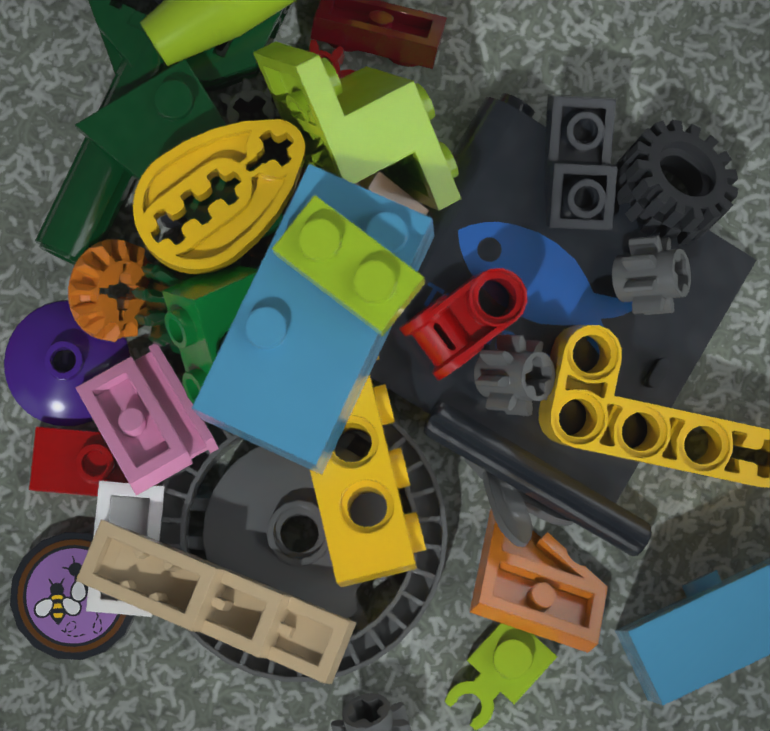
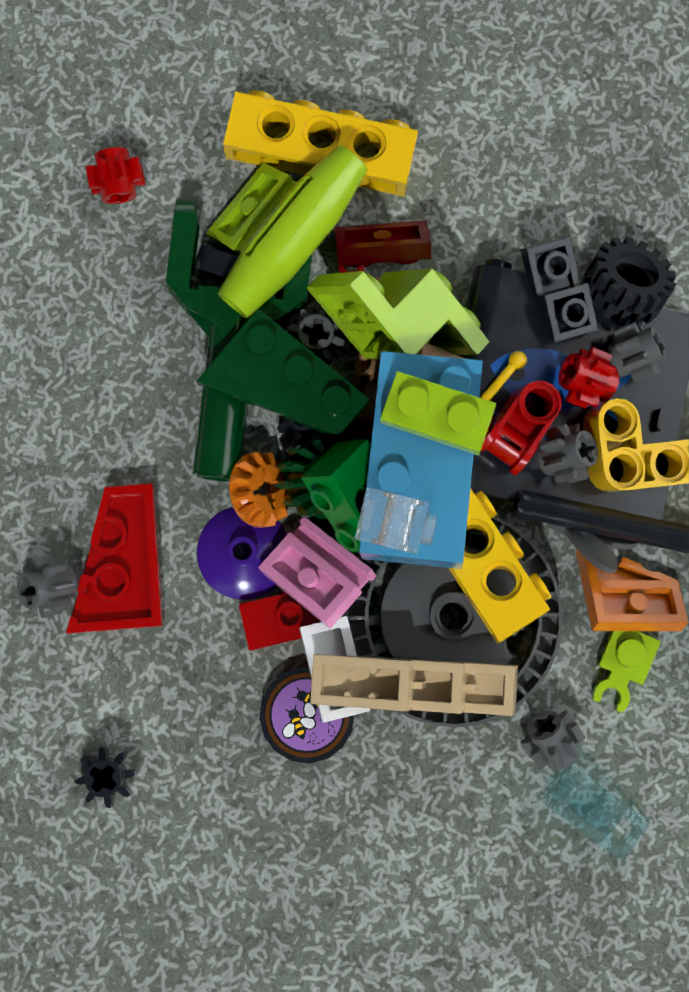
camera: 20 degrees left, 0 degrees up
(188, 172) = (290, 386): yellow piece -> none
(244, 383) = (395, 521): none -> clear brick
(493, 235) = (516, 360): none -> yellow hinge
(575, 287) = (588, 377): none -> red gear

